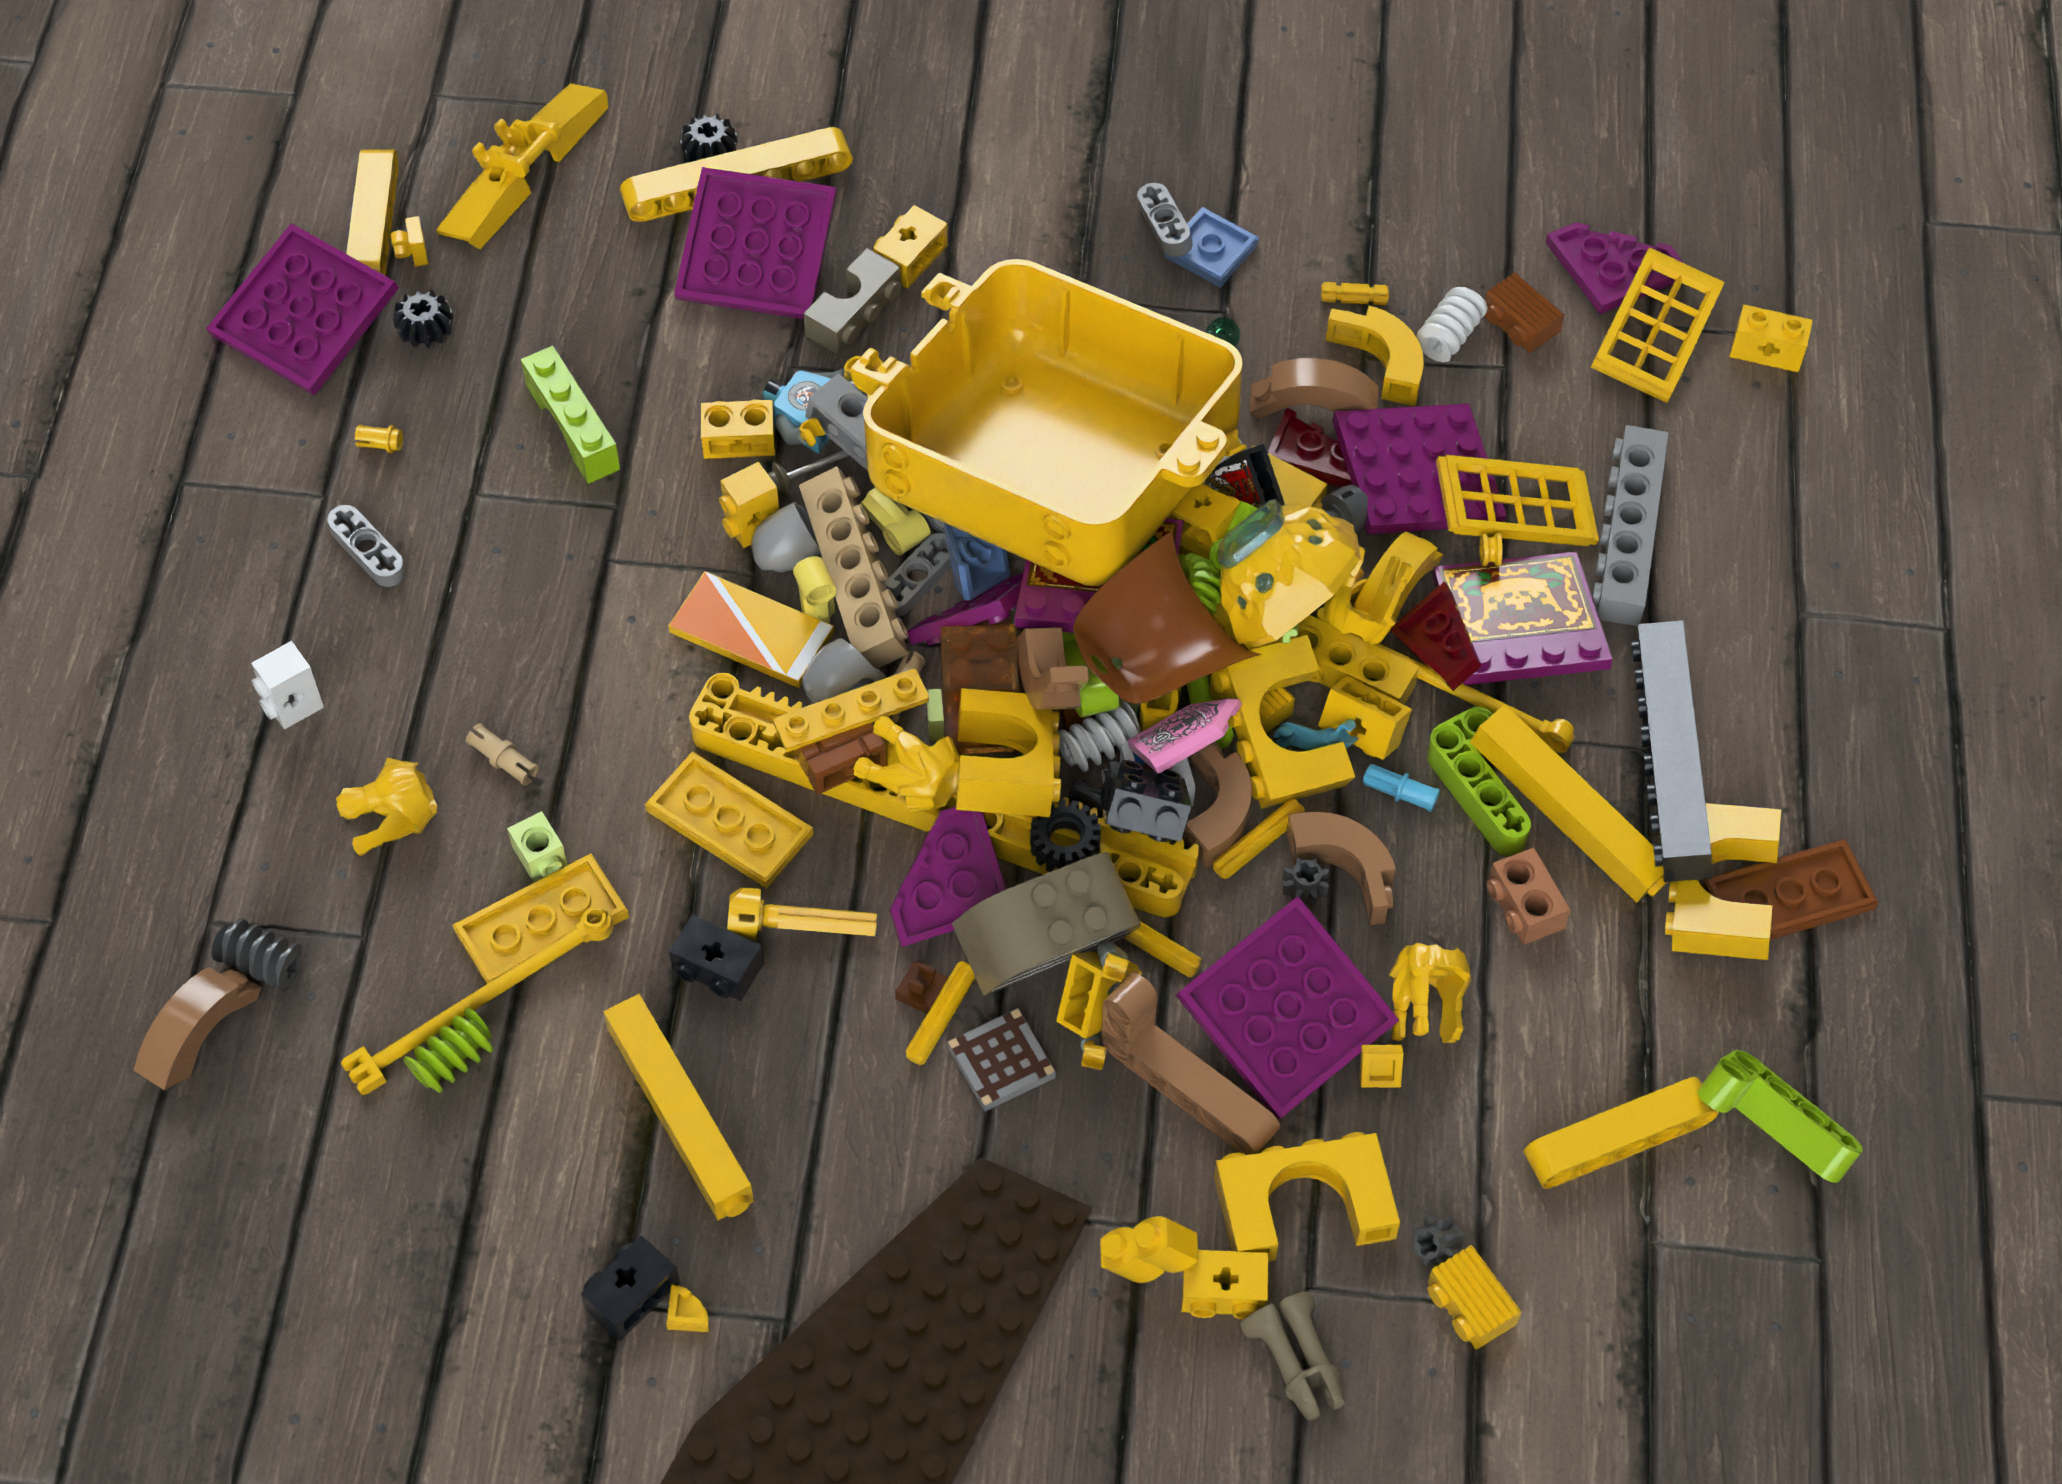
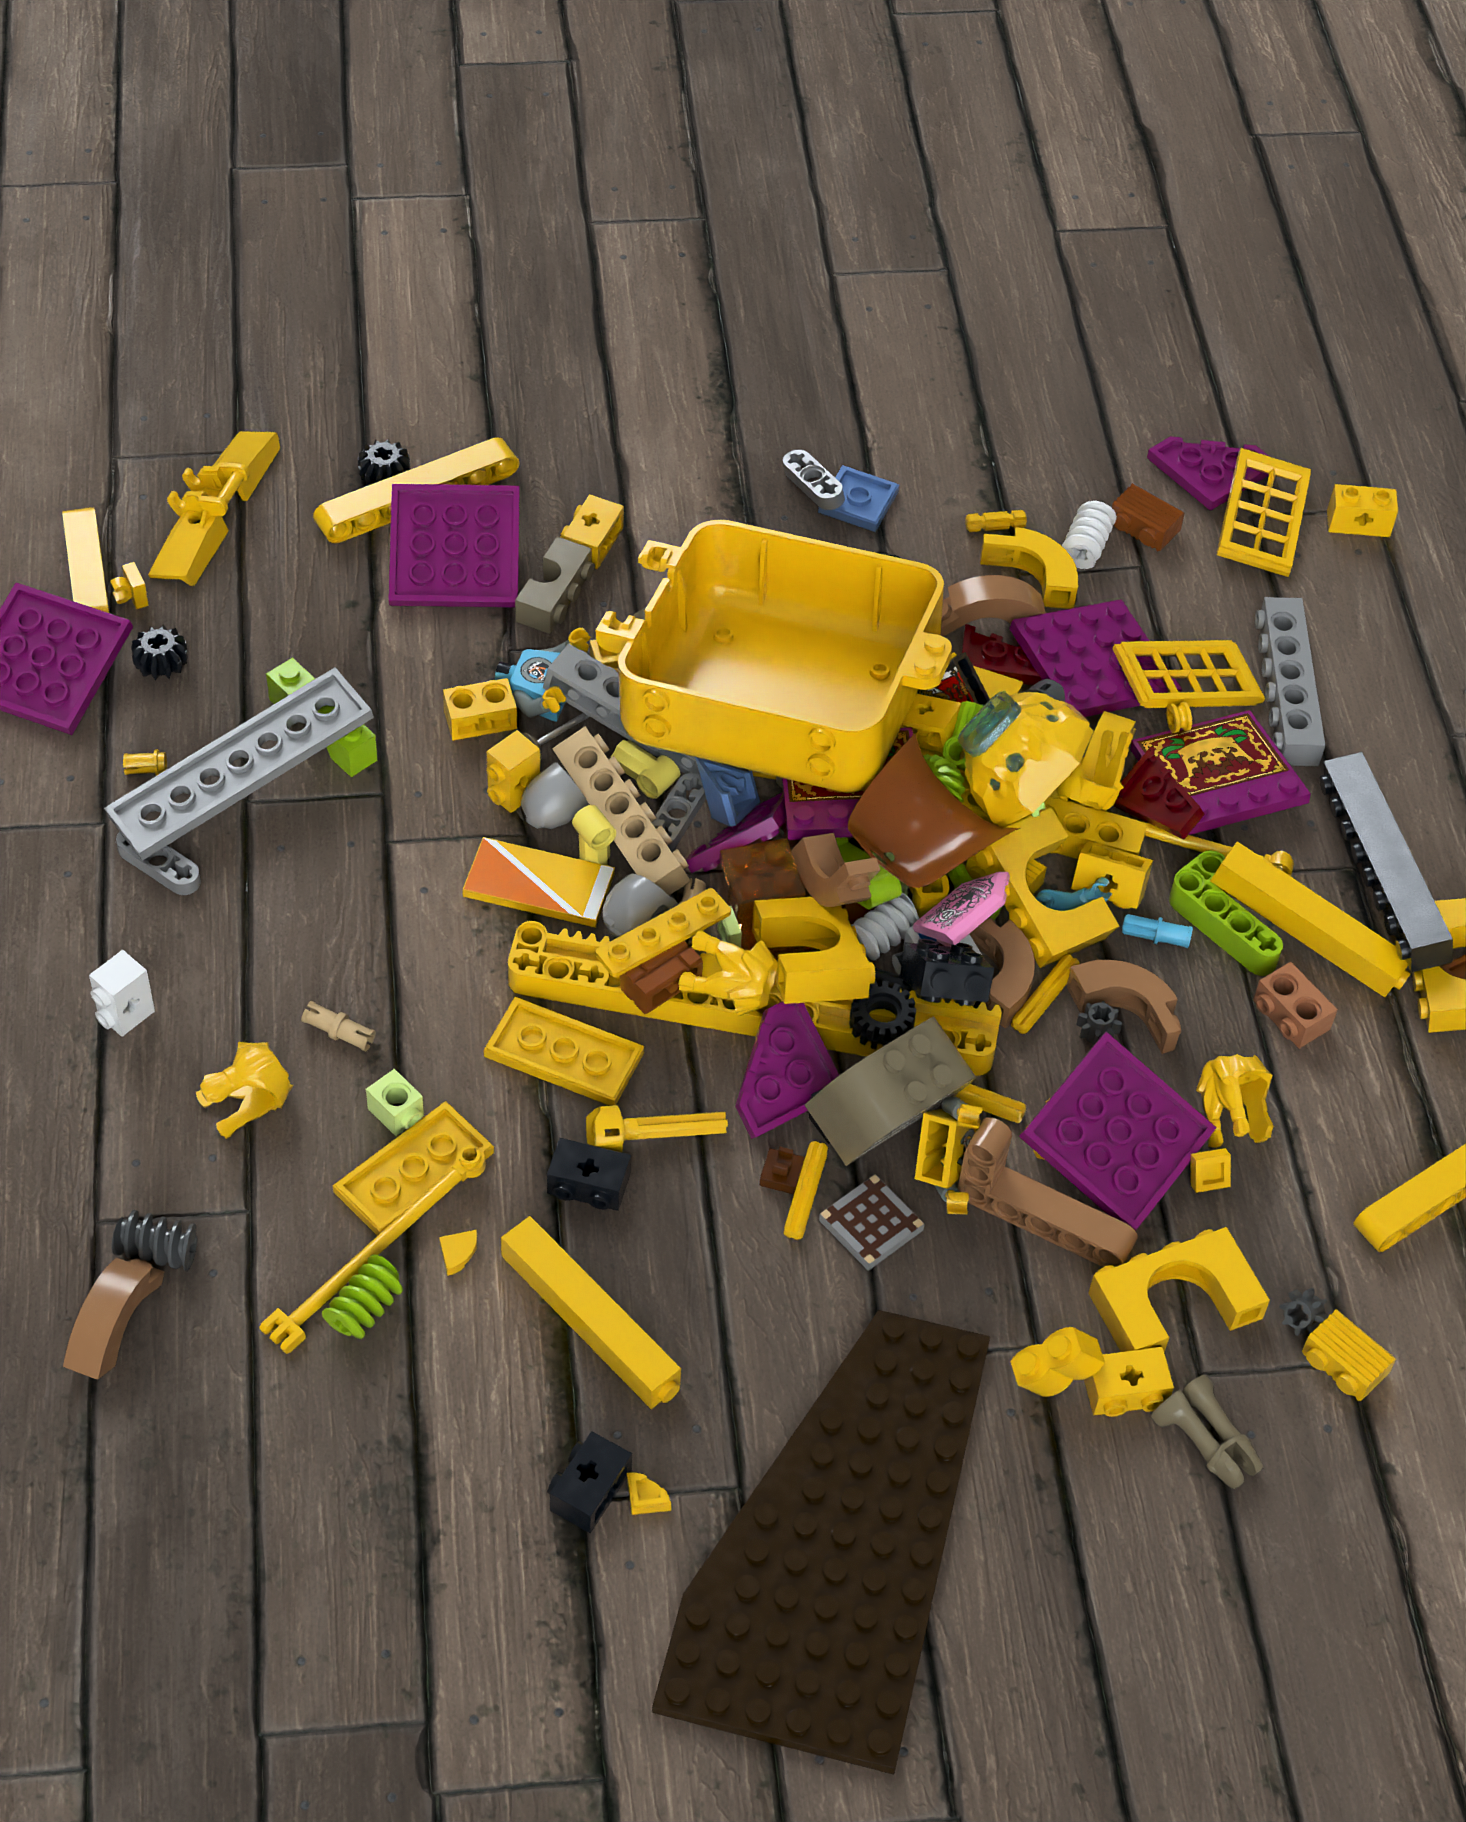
camera: 15 degrees left, 5 degrees down
(449, 442) = (238, 782): none -> light grey plate
(563, 1015) = (458, 1250): none -> yellow tile

